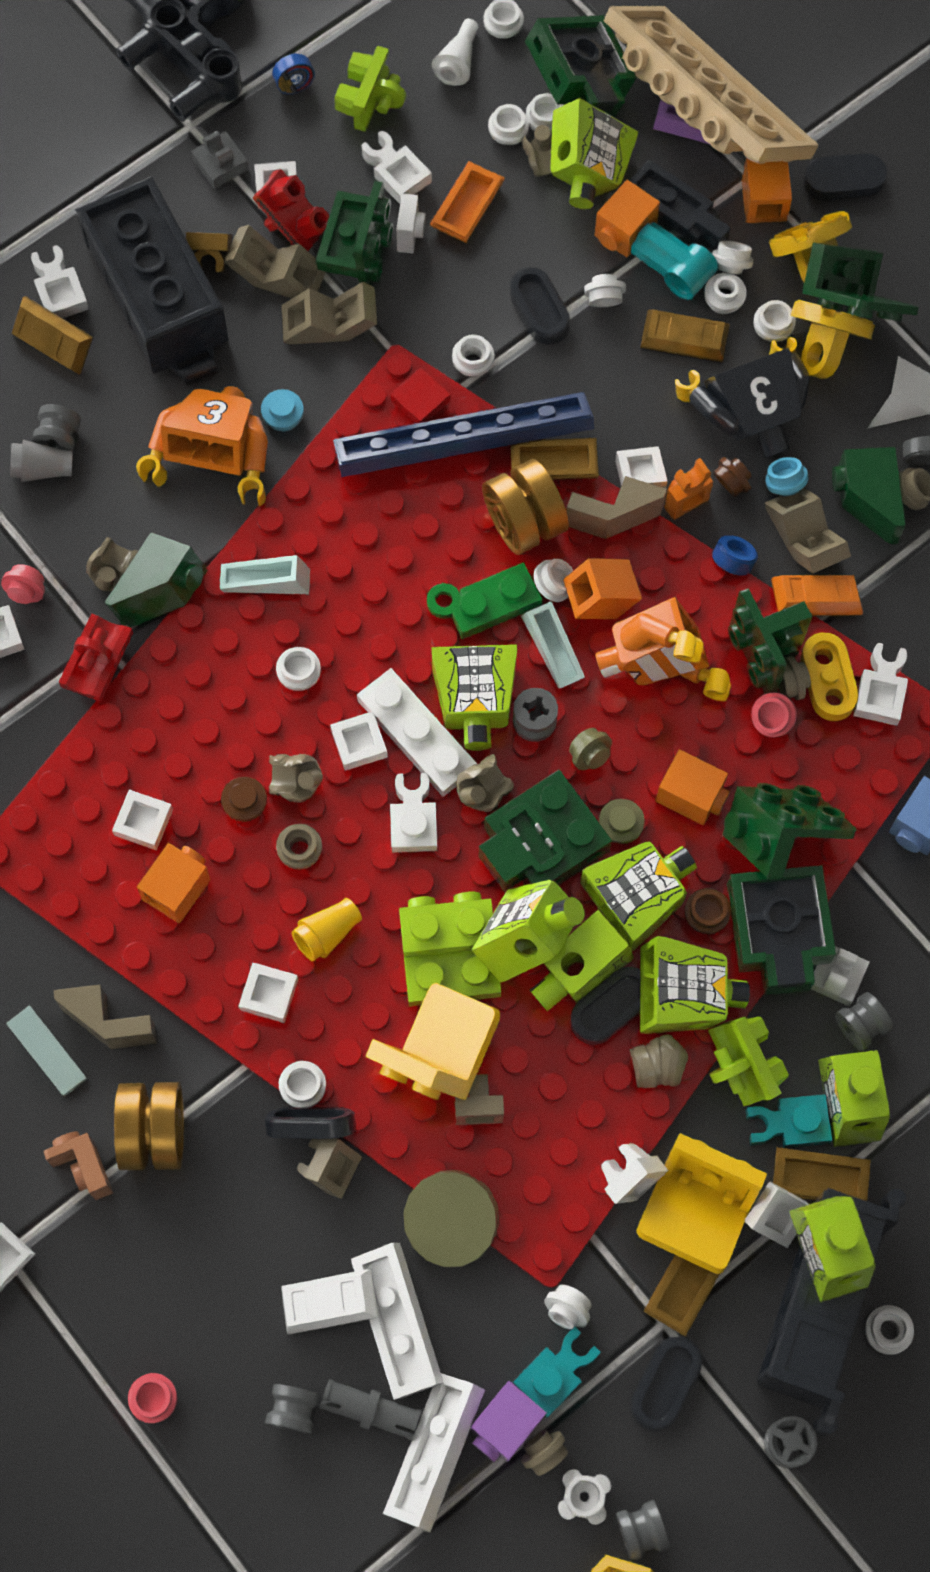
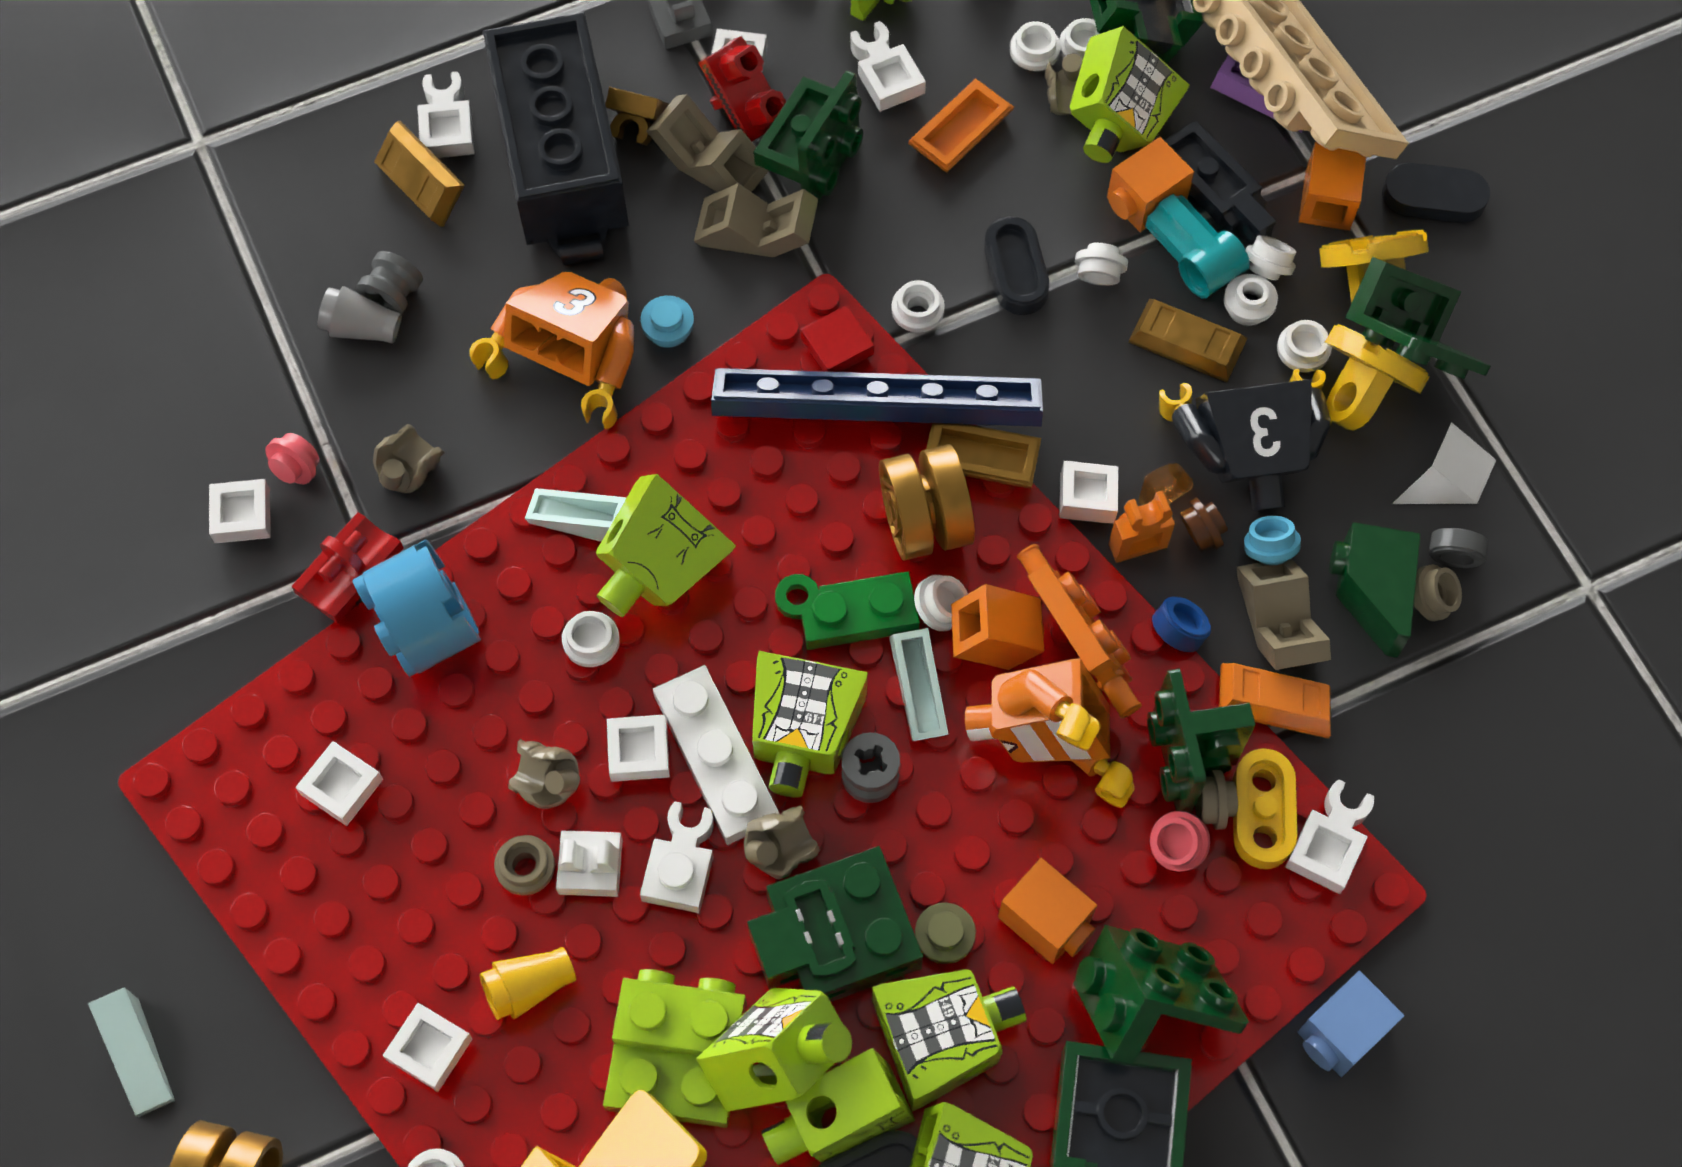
camera: 15 degrees right, 5 degrees down
(90, 1009) = (203, 1014): dark tan slope -> none
(156, 581) = (449, 491): dark green slope -> none
(164, 675) = (417, 608): none -> dark azure brick
(174, 881) = (354, 872): orange brick -> none
(244, 799) = (473, 787): reddish brown plate -> none
(332, 587) = (657, 547): none -> lime torso
(346, 834) = (589, 863): none -> white tile
(410, 223) = (882, 134): white plate -> none
(590, 749) = (929, 829): olive plate -> none
(634, 505) = (1064, 533): dark tan slope -> none
(676, 582) = (1091, 639): none -> orange plate
(697, 448) = (1170, 479): none -> clear orange tile
(707, 911) = (1027, 1081): reddish brown plate -> none

